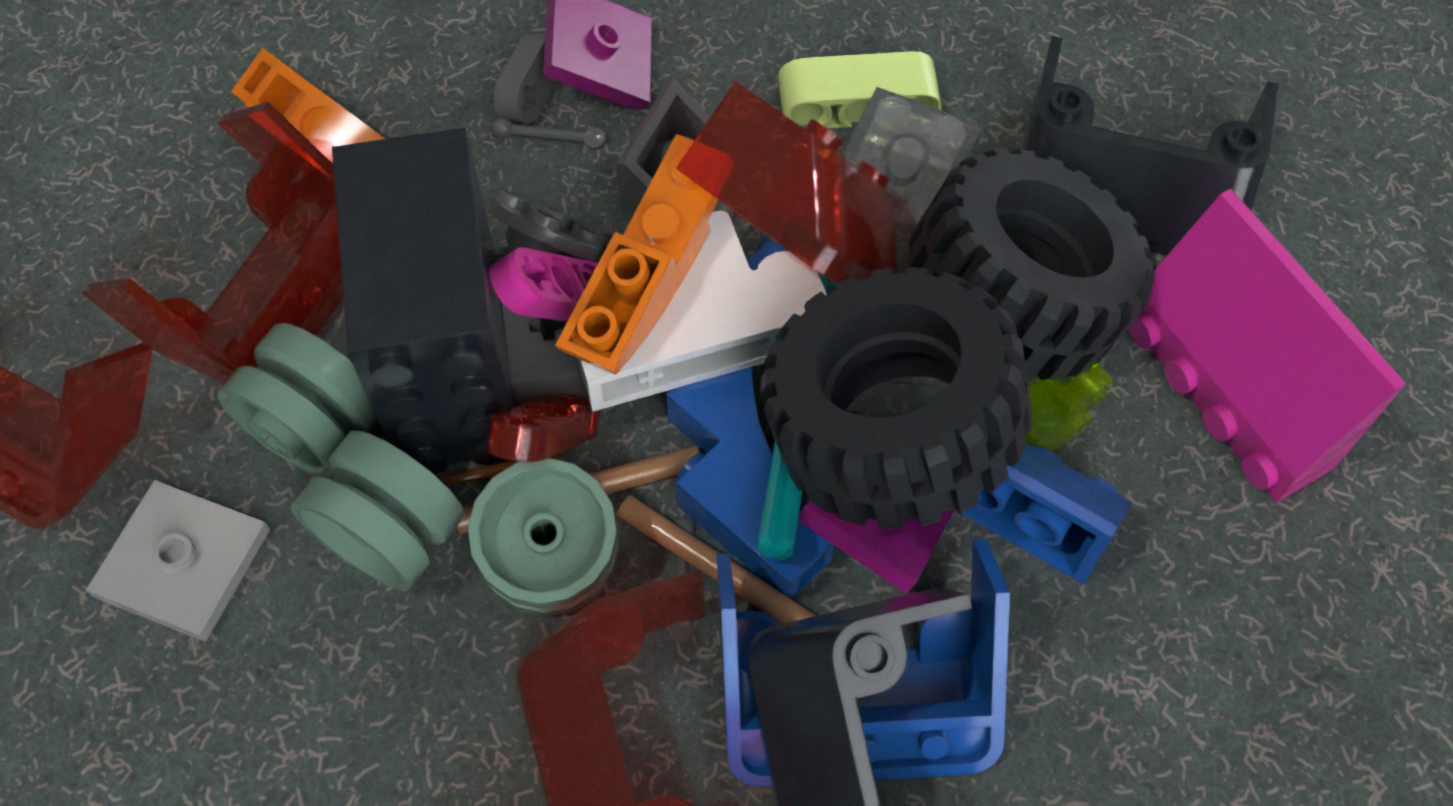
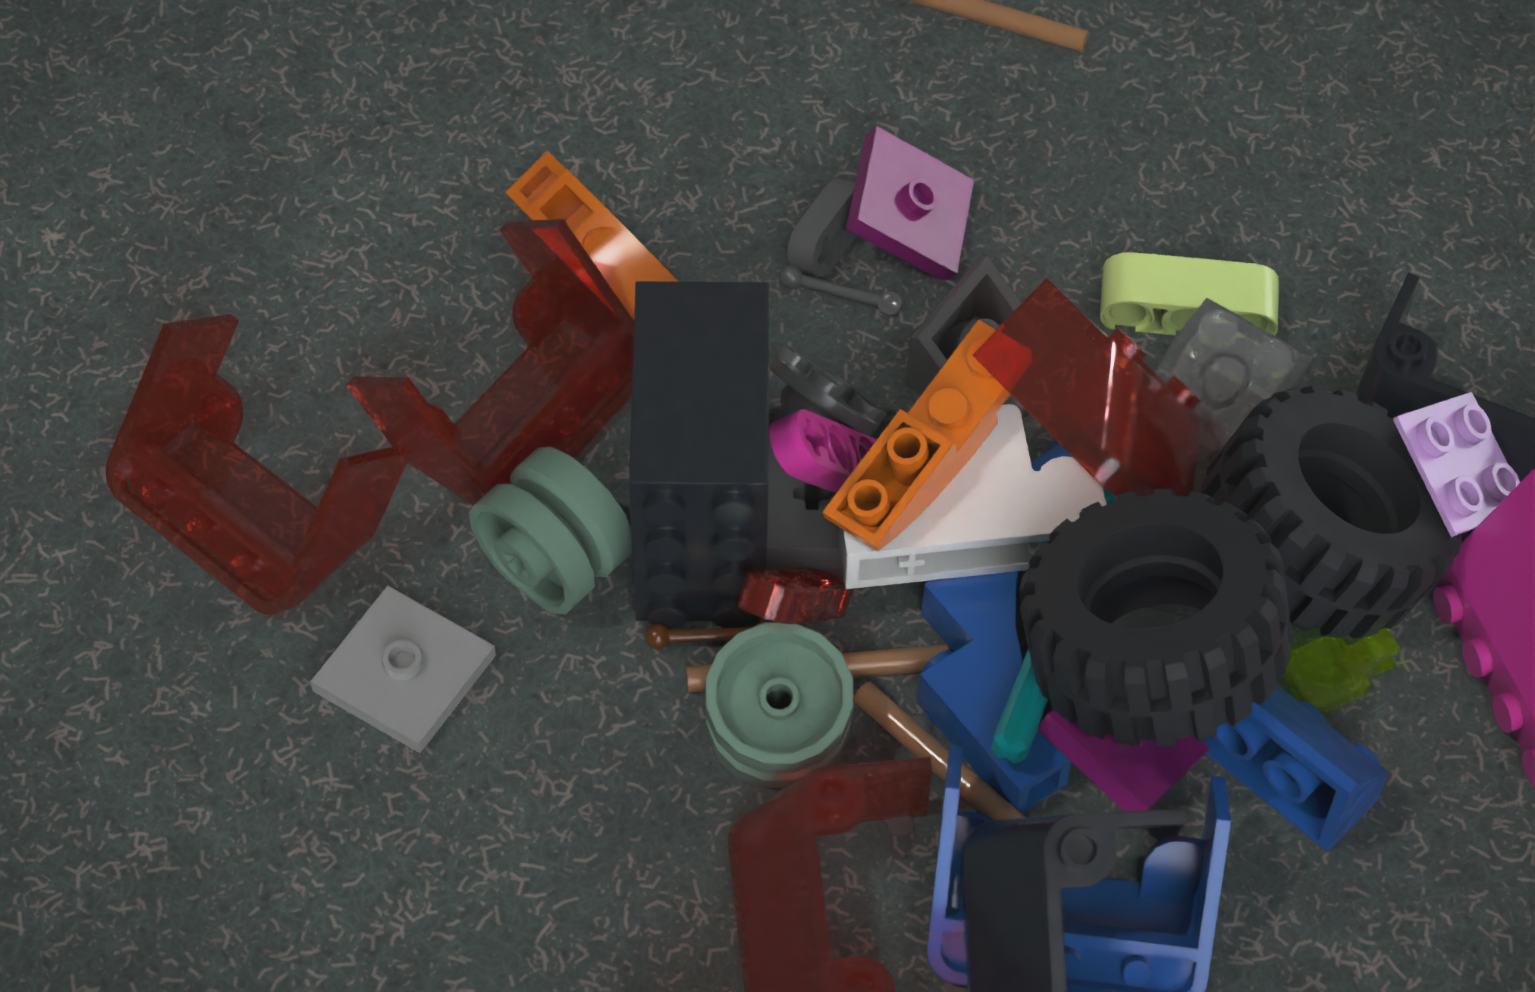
camera: 10 degrees right, 5 degrees down
(378, 510) = (616, 650): sand green wheel -> none
(1138, 198) = (1458, 460): none -> lavender hinge

